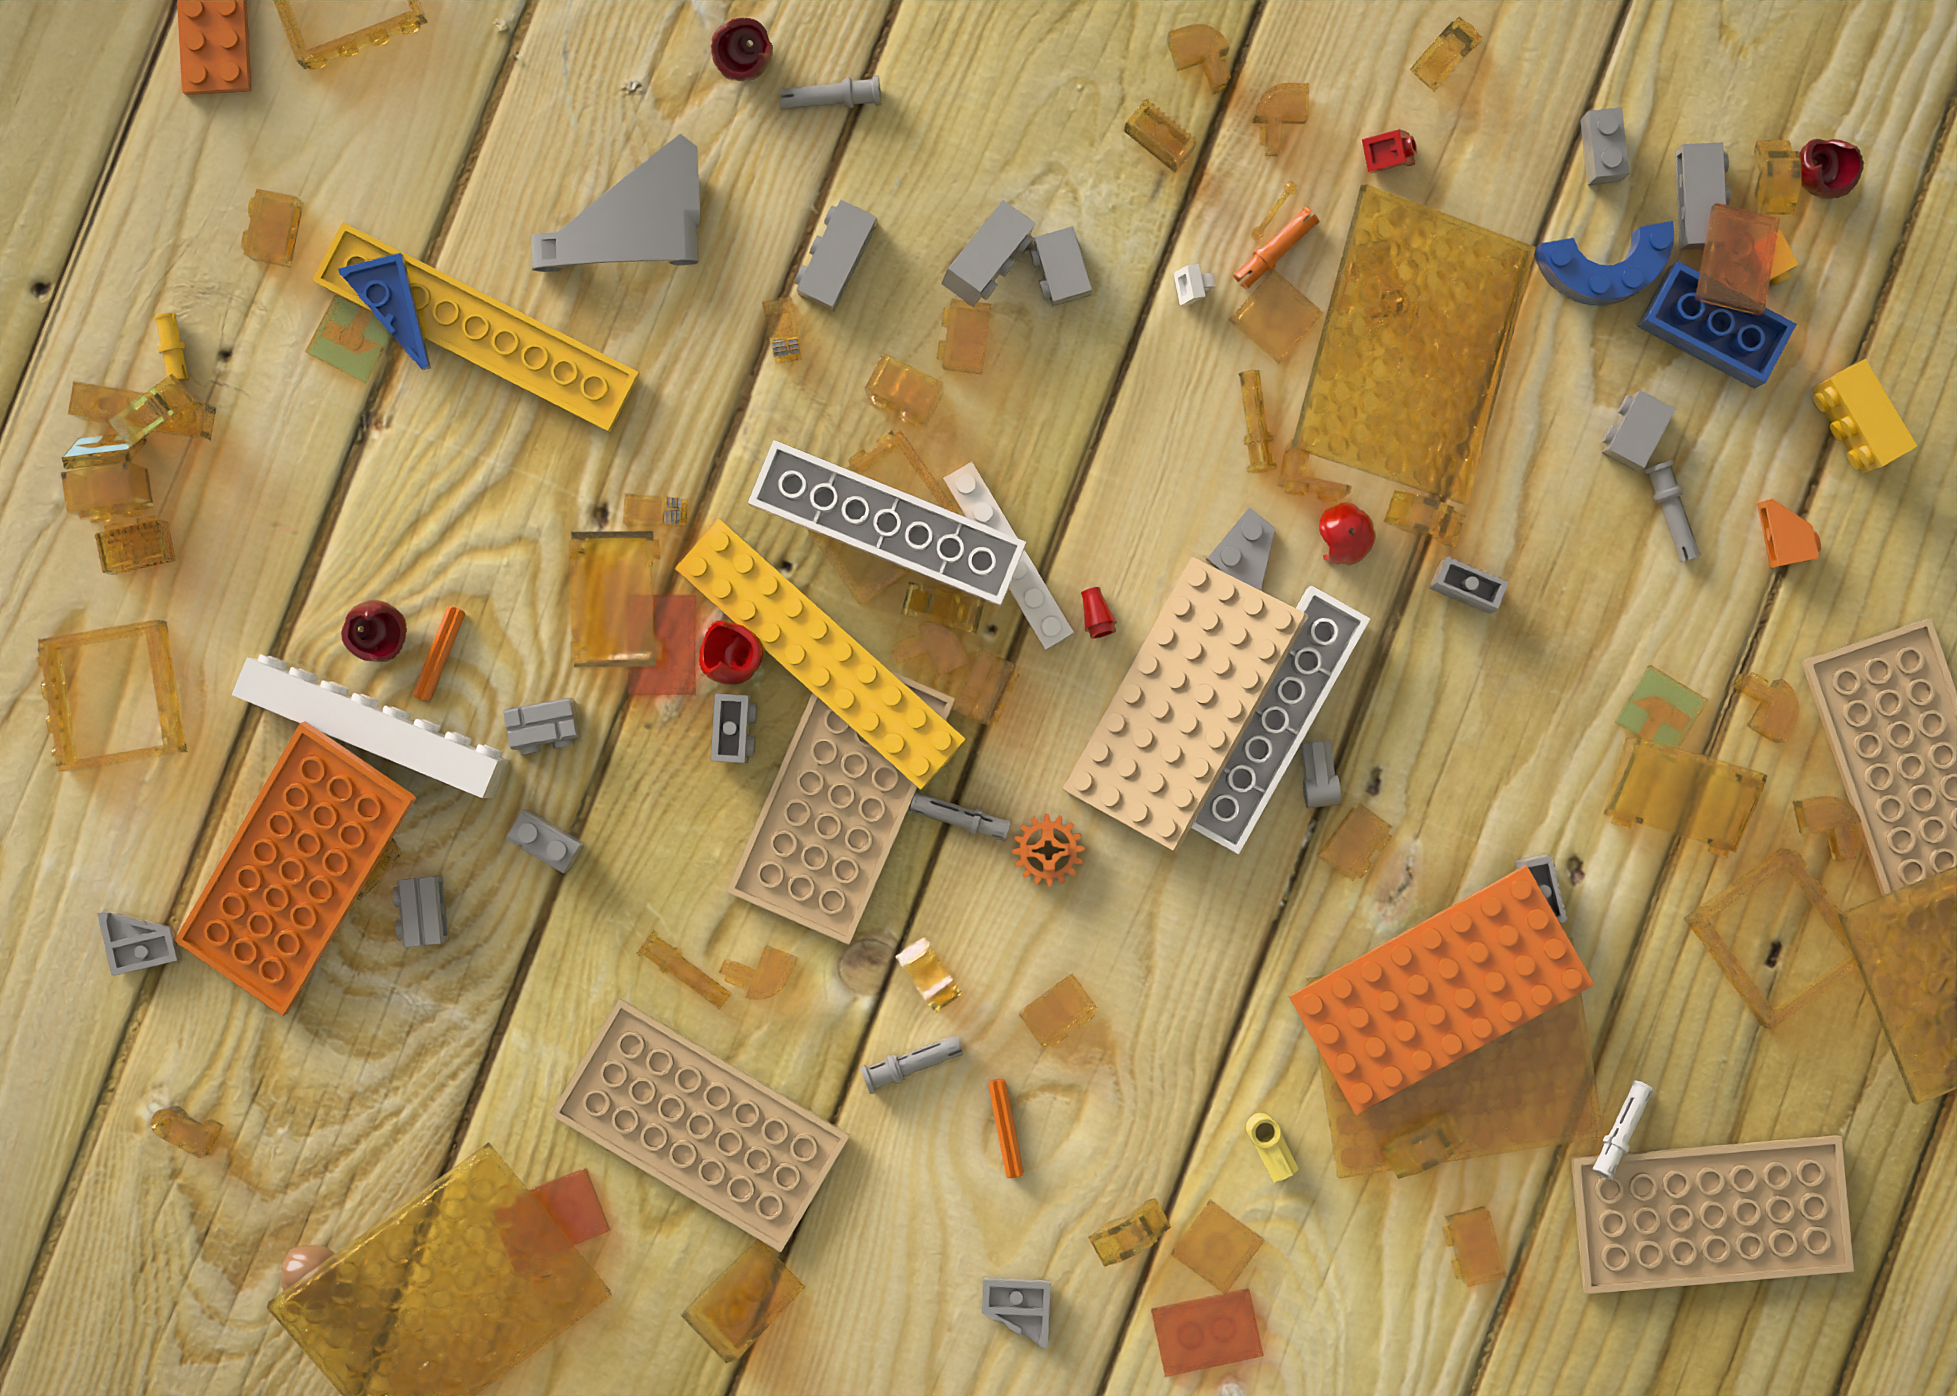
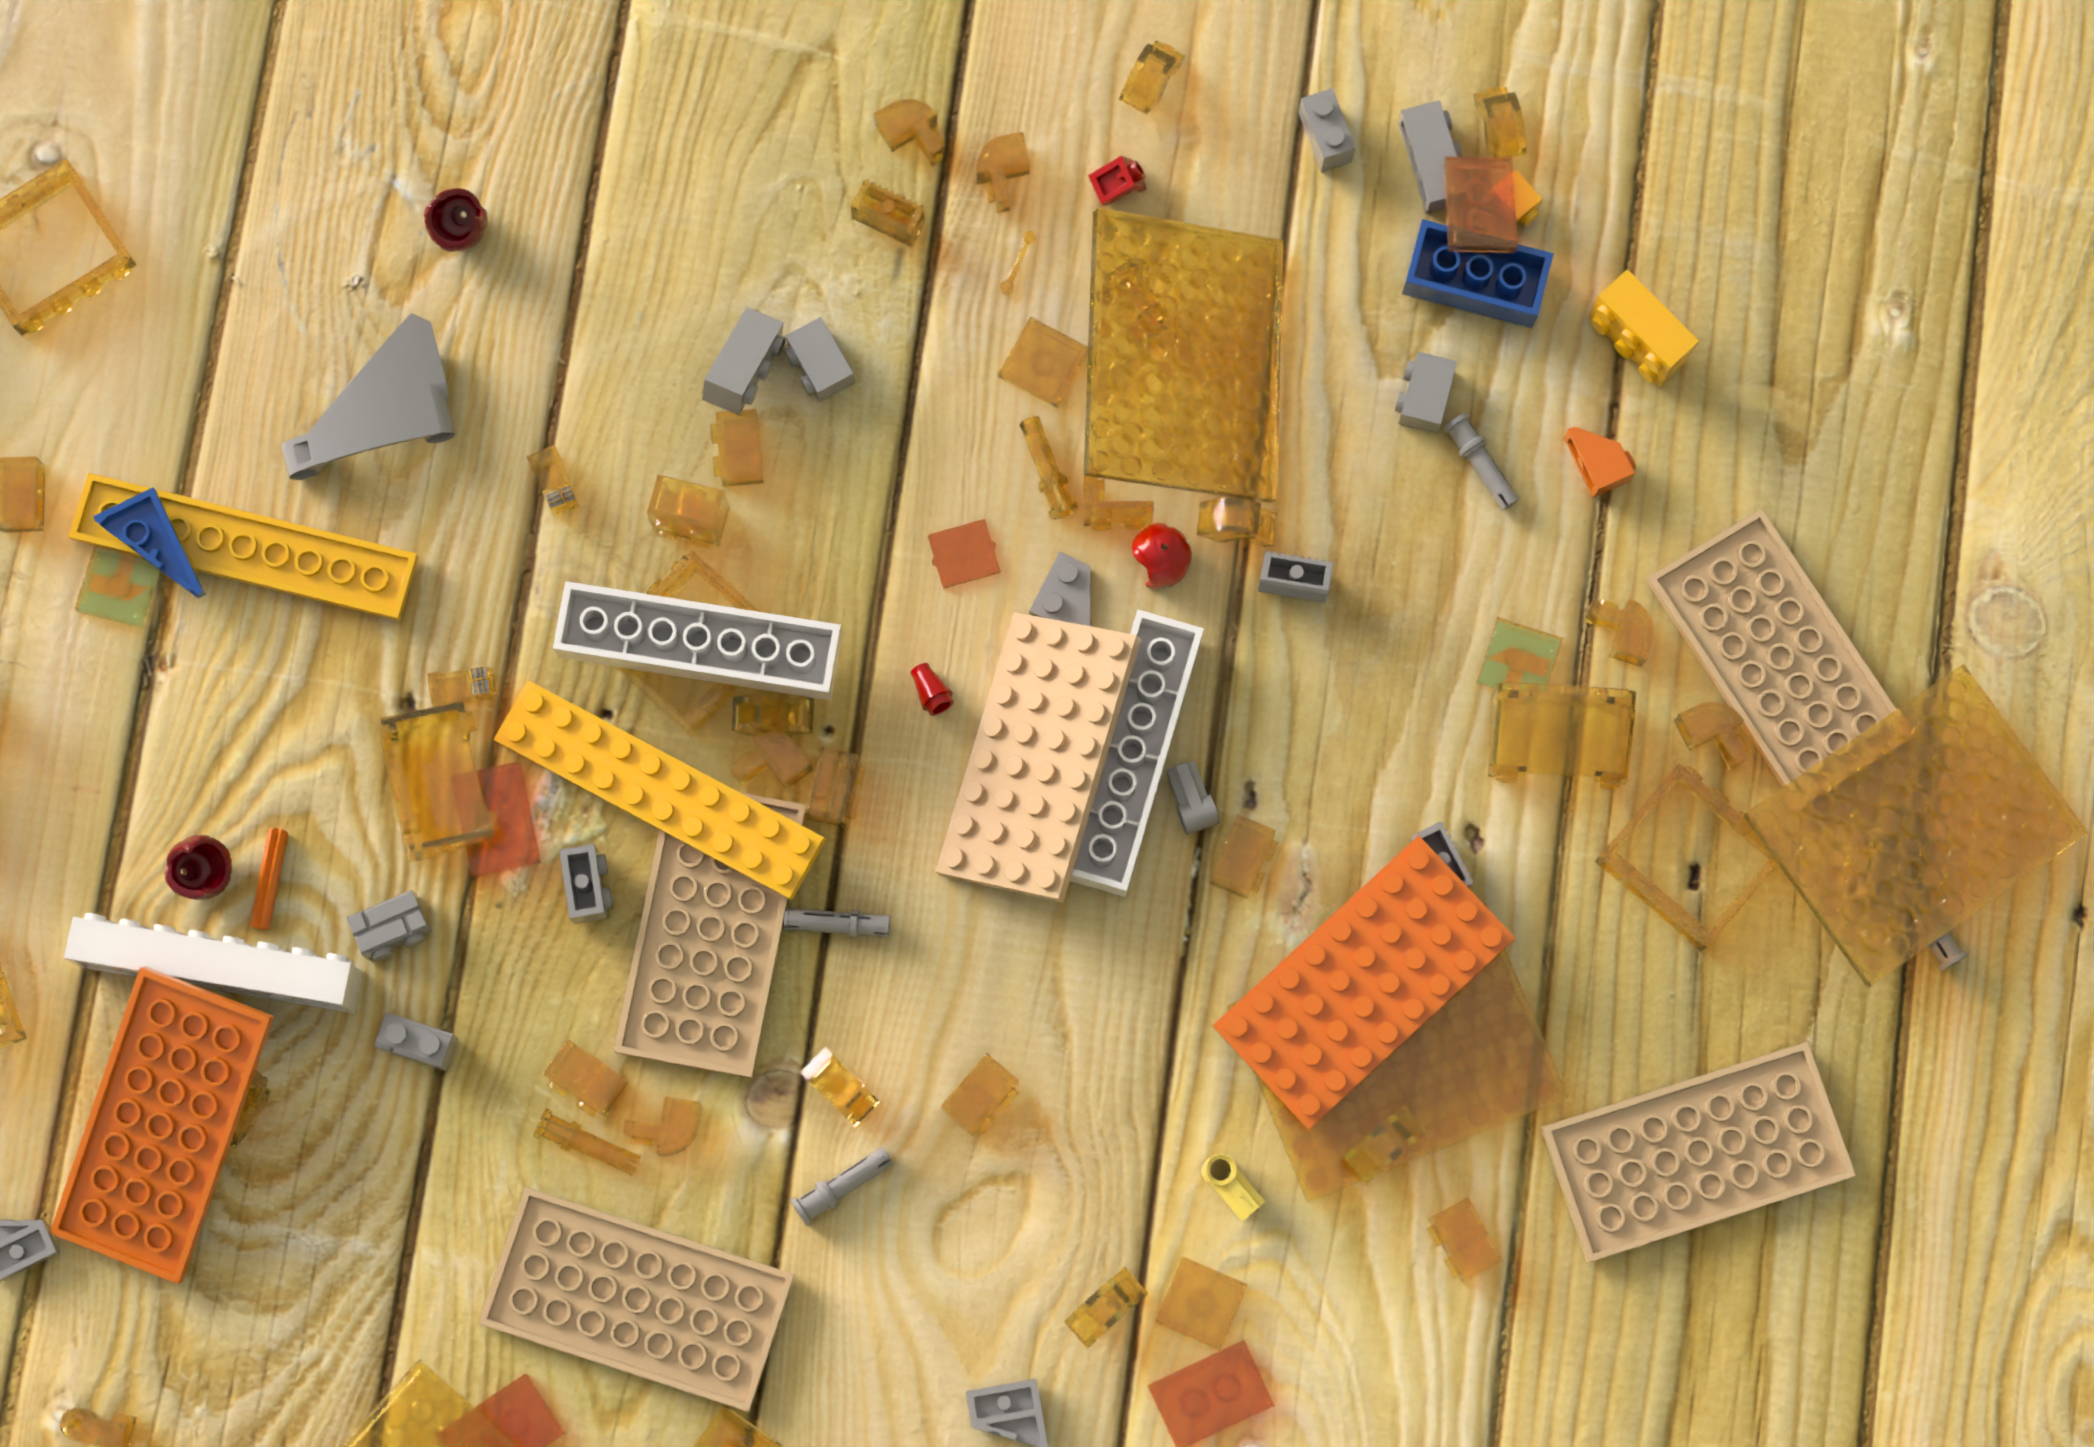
camera: 20 degrees left, 10 degrees down
(421, 911) = (301, 1143): light grey brick -> none
(694, 911) = (585, 1079): none -> clear yellow brick
(730, 653) = (567, 808): red piece -> none
(835, 255) = (591, 397): light grey brick -> none
(847, 93) = (570, 241): light grey pin -> none
(1005, 1128) = (954, 1230): orange axle -> none
(1026, 583) = (852, 675): white plate -> none
(1048, 864) = (949, 929): orange gear -> none
(1157, 487) = (963, 553): none -> clear orange piece
(1192, 284) = (953, 348): white tile -> none
(1265, 258) = (1020, 307): orange pin -> none
(1606, 284) = (1359, 258): blue brick -> none
(1617, 1141) = (1581, 1097): white pin -> none
(1830, 167) = (1549, 102): dark red piece -> none

